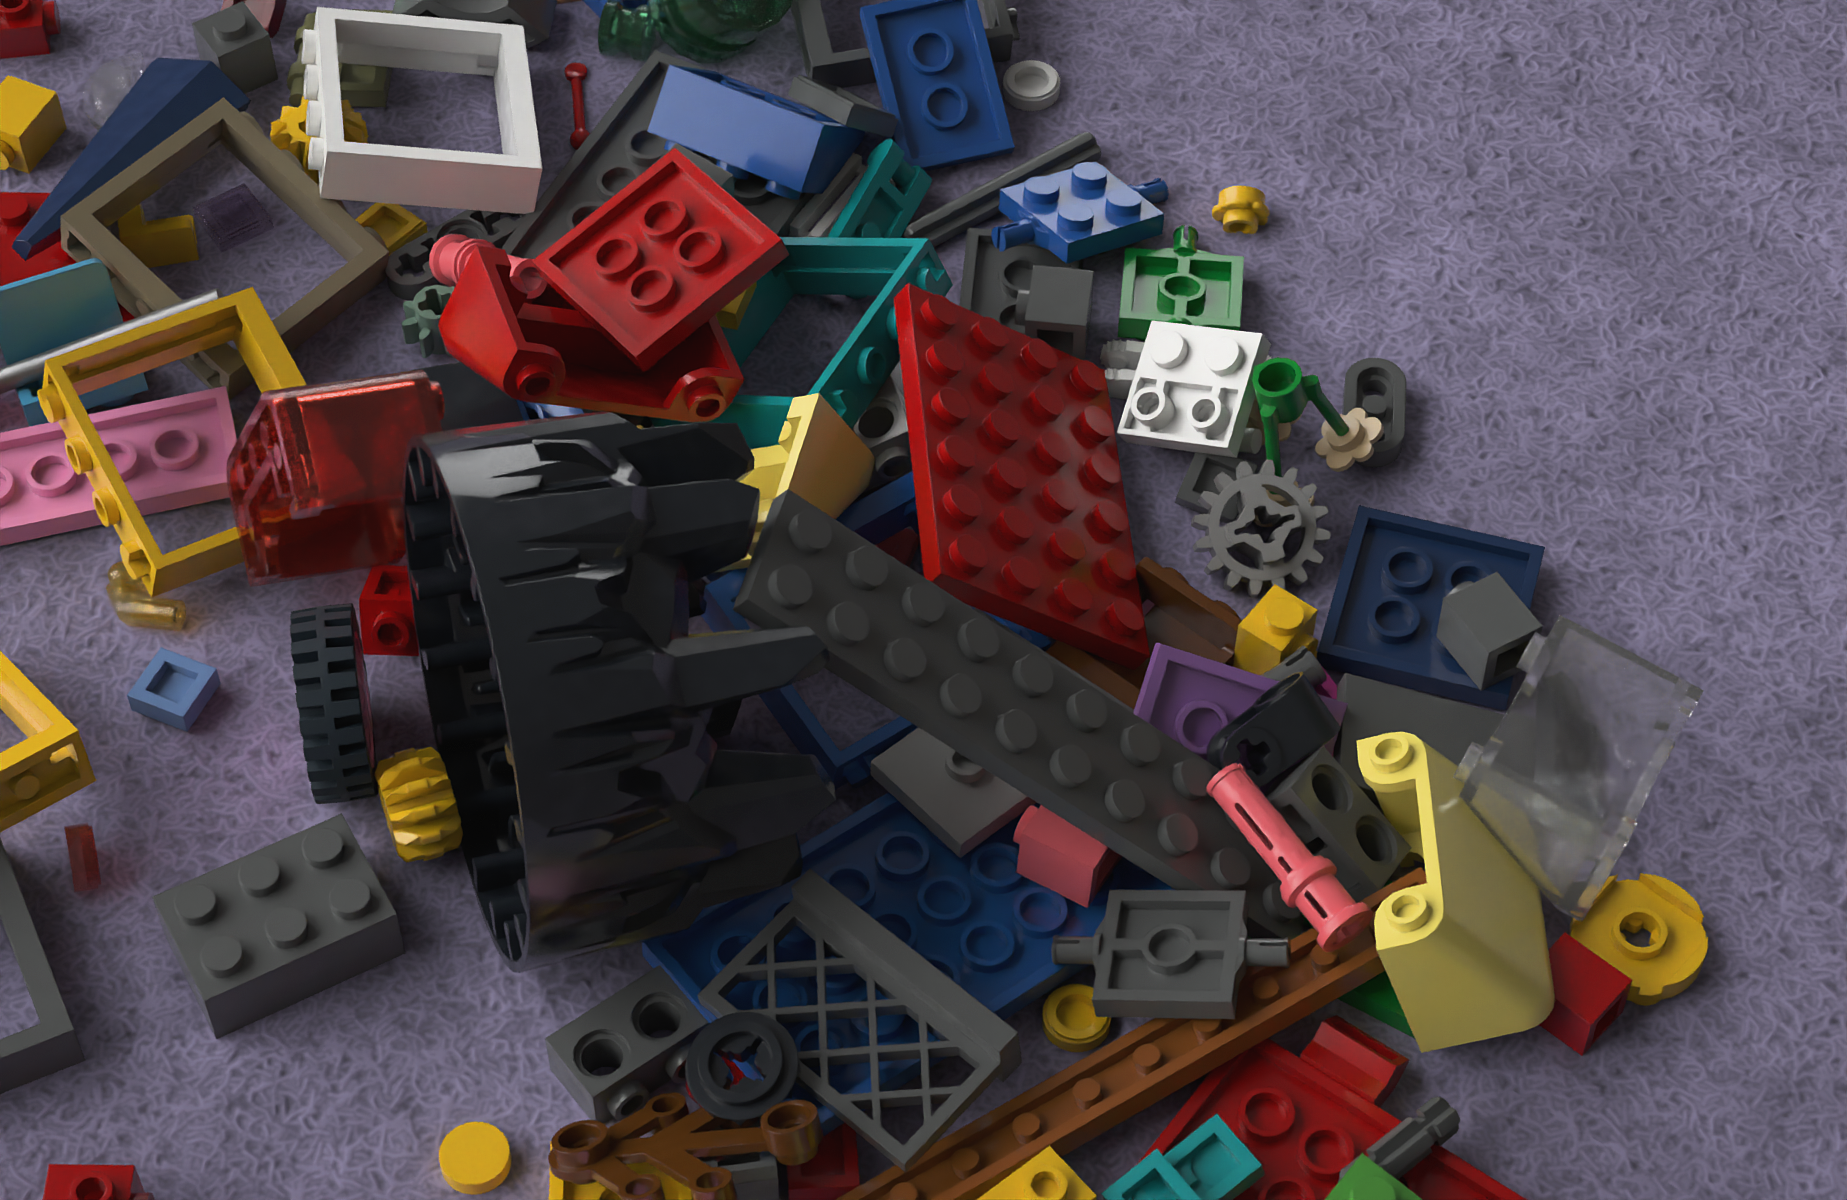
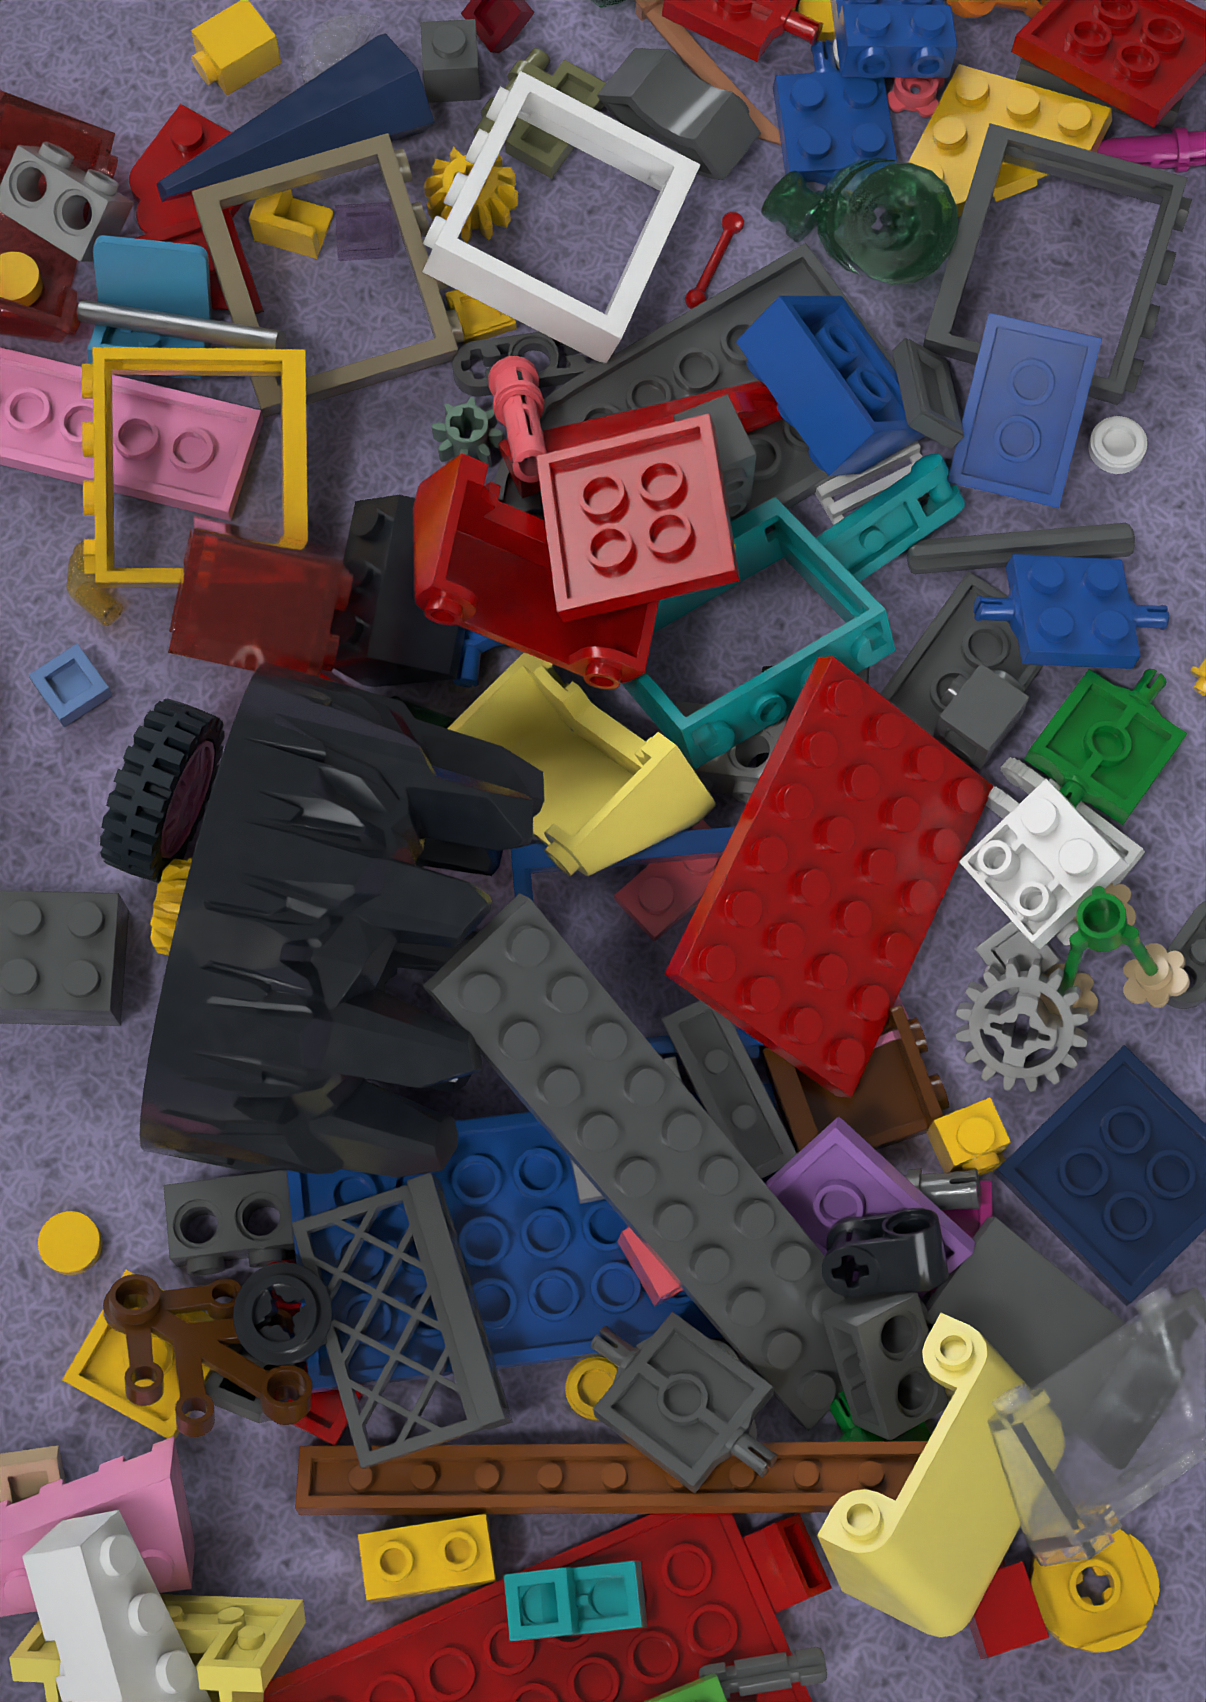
camera: 30 degrees right, 20 degrees up
(1305, 878) = (822, 1409): coral pin -> none
(1486, 629) = (1145, 1240): dark grey brick -> none

